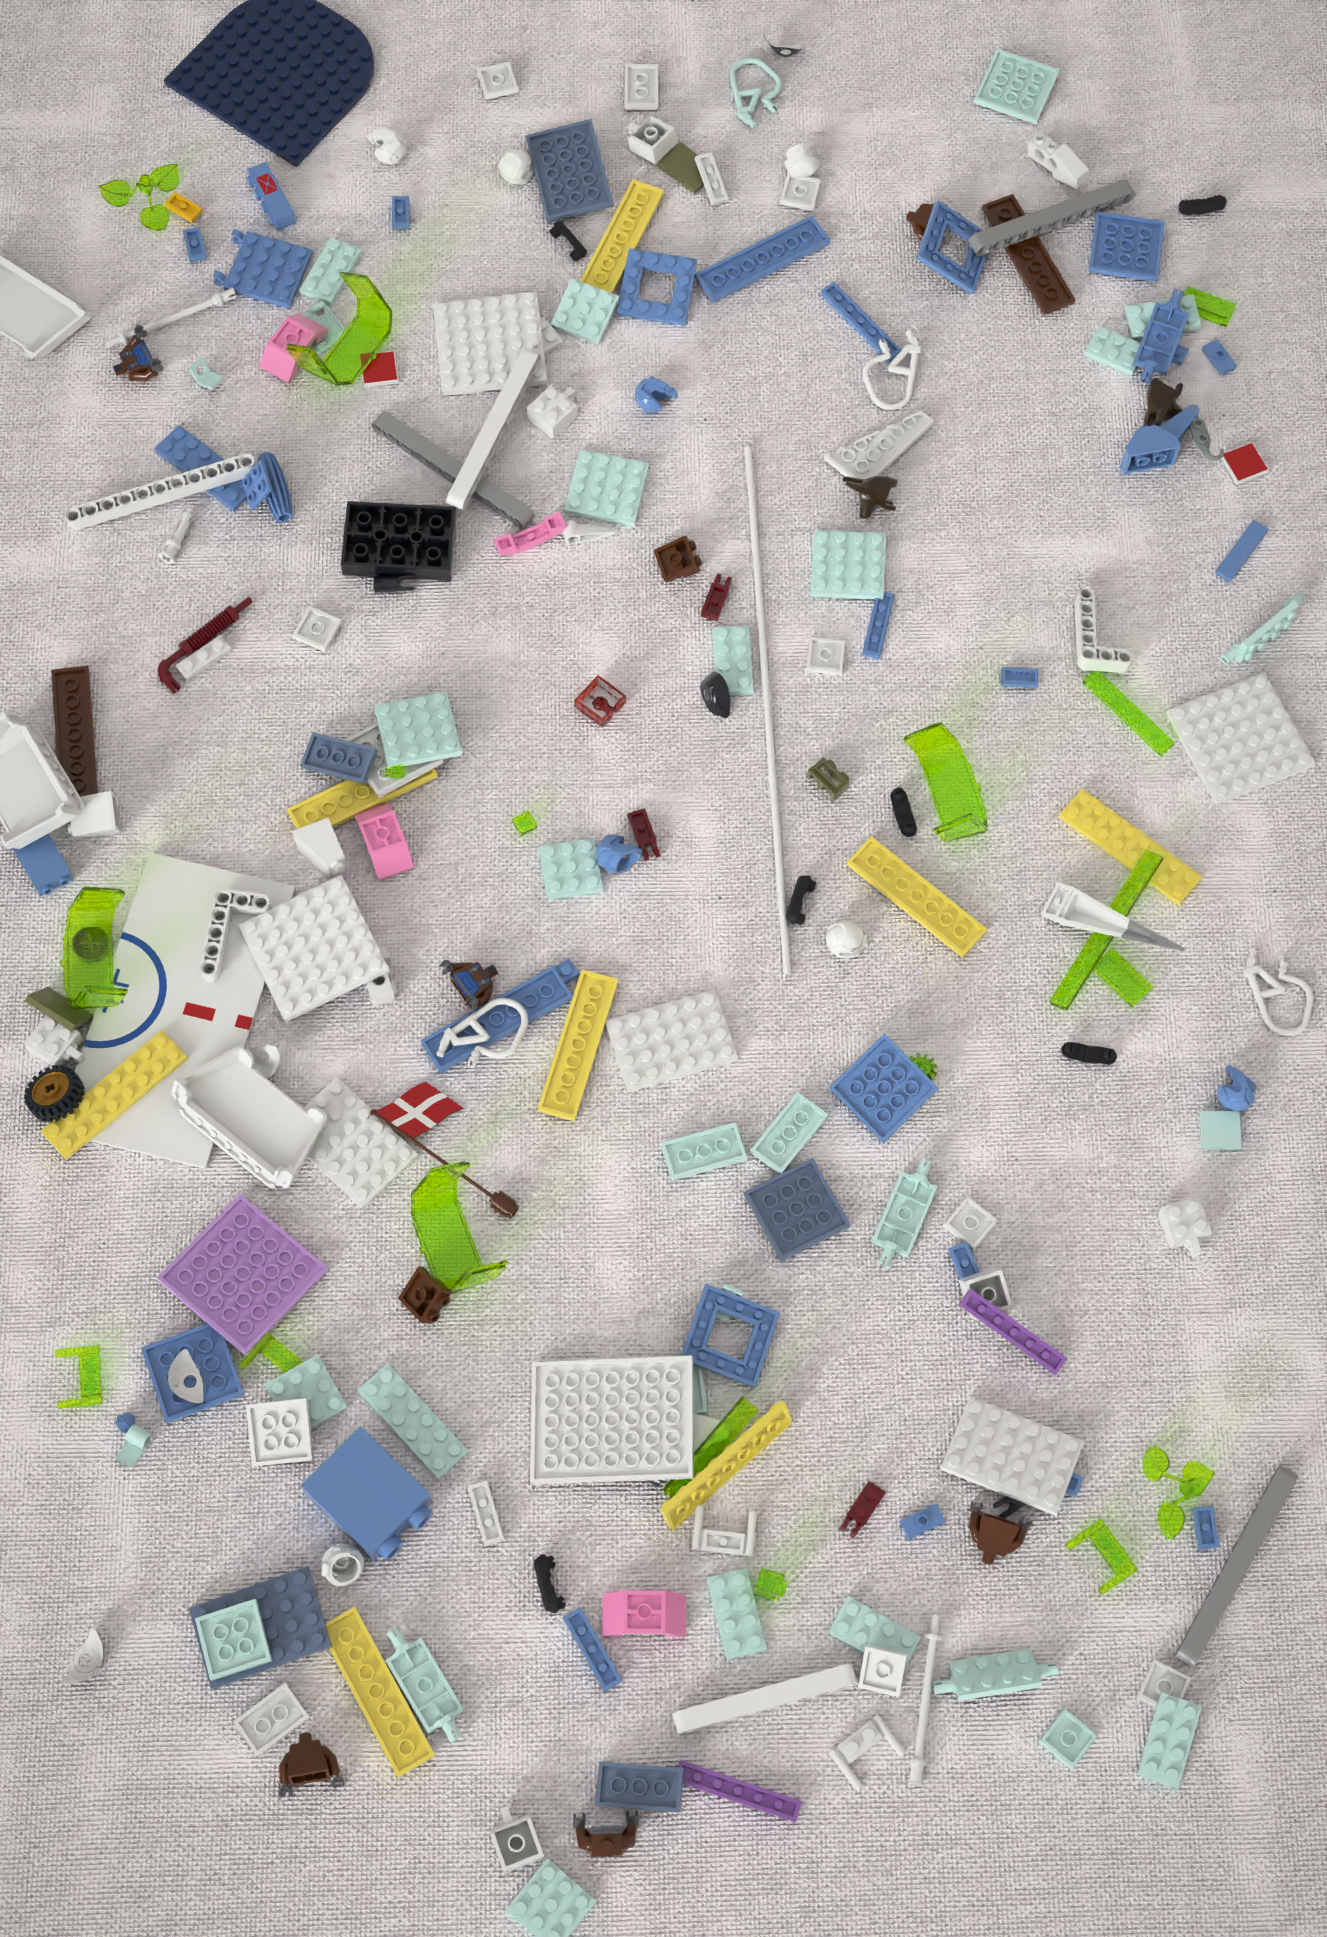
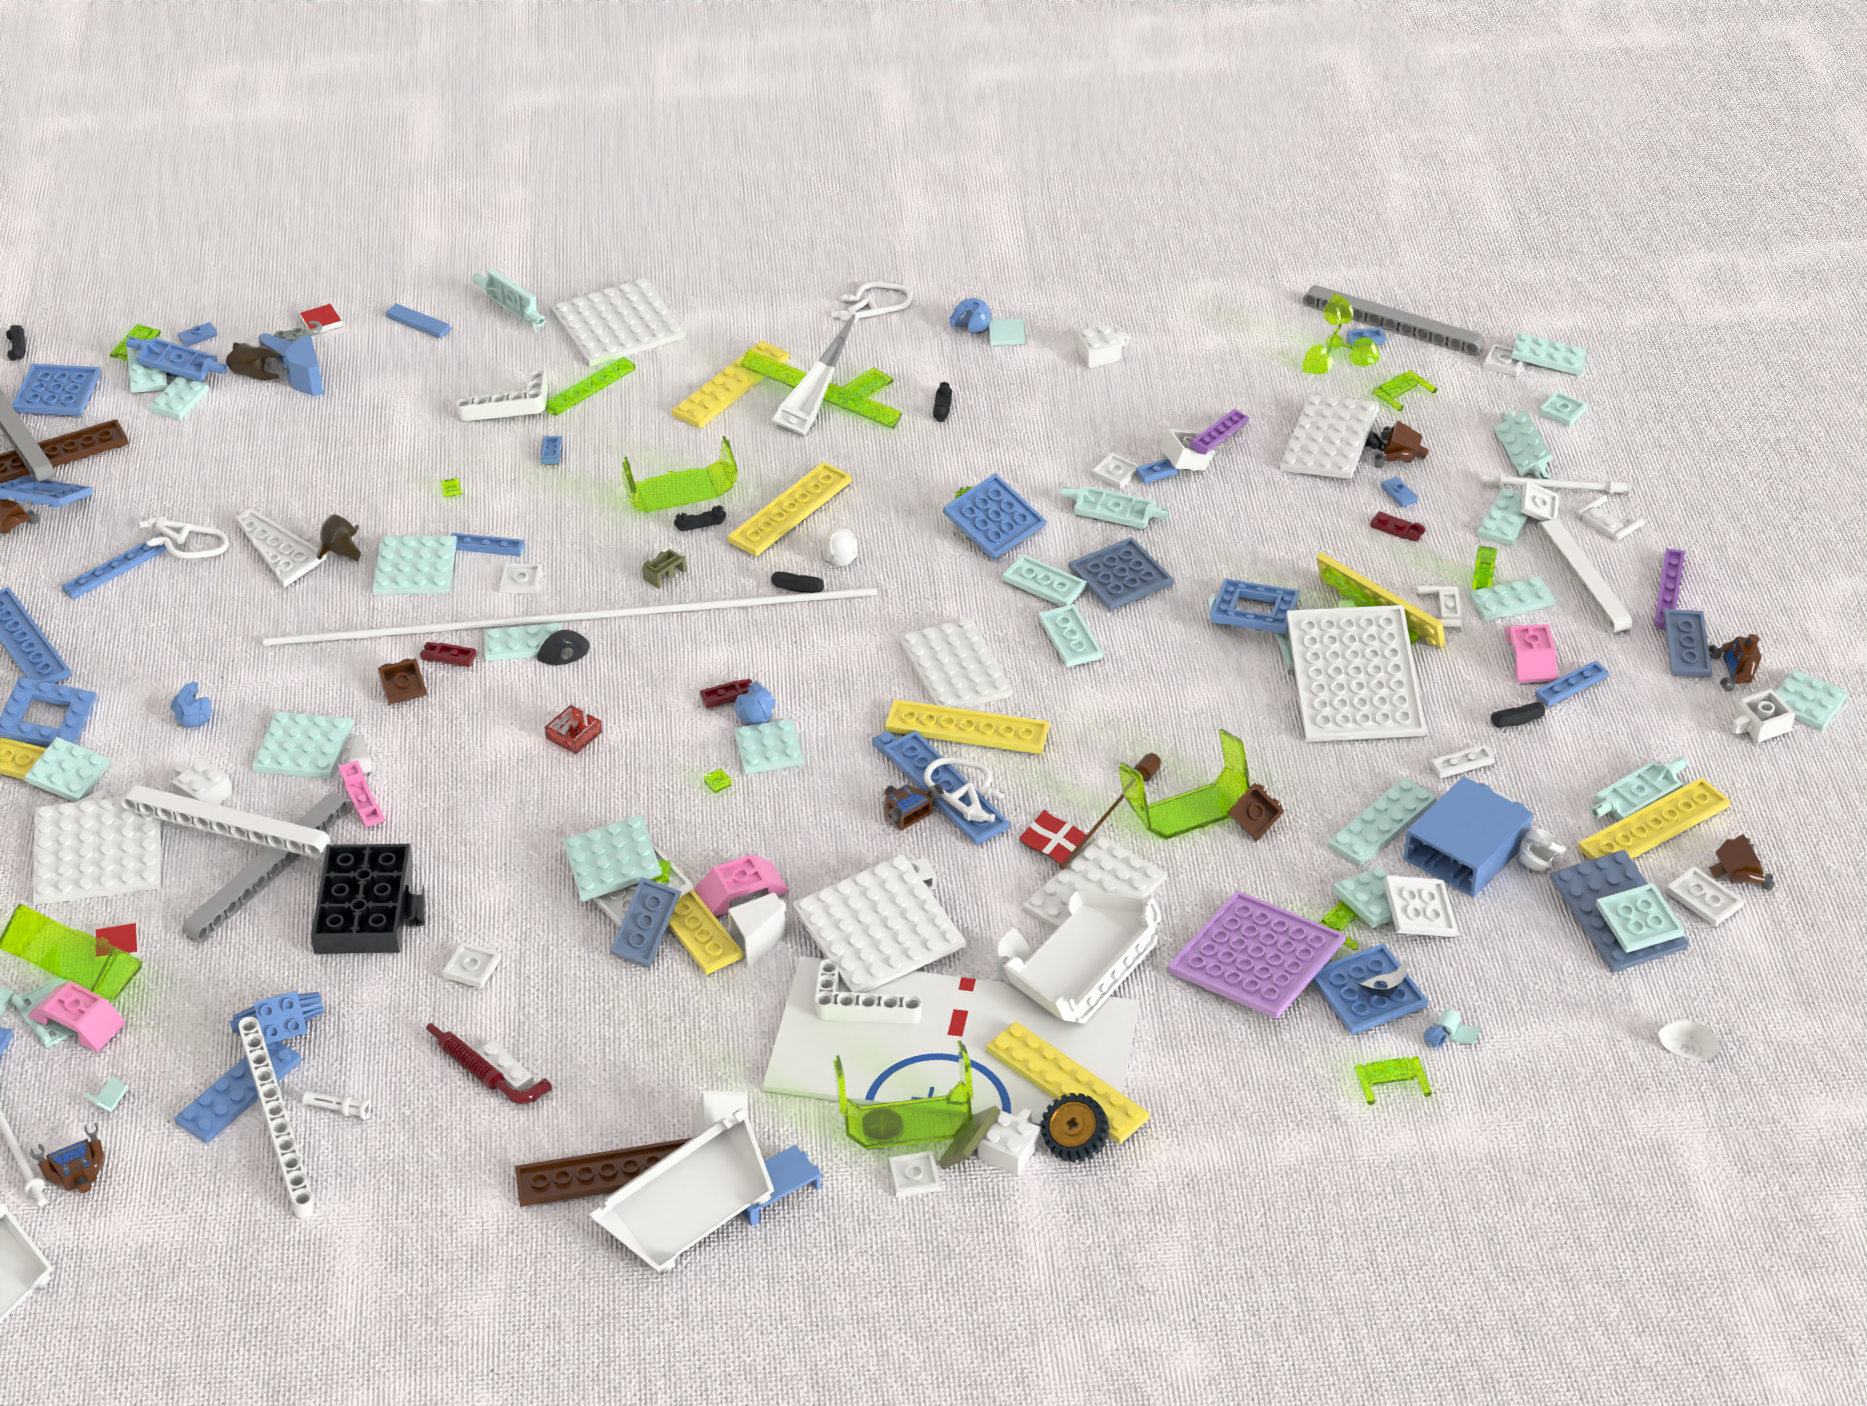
camera: 90 degrees left, 25 degrees down
(39, 968) = (914, 1174): none -> white tile
(962, 590) = (451, 487): none -> clear neon green plate

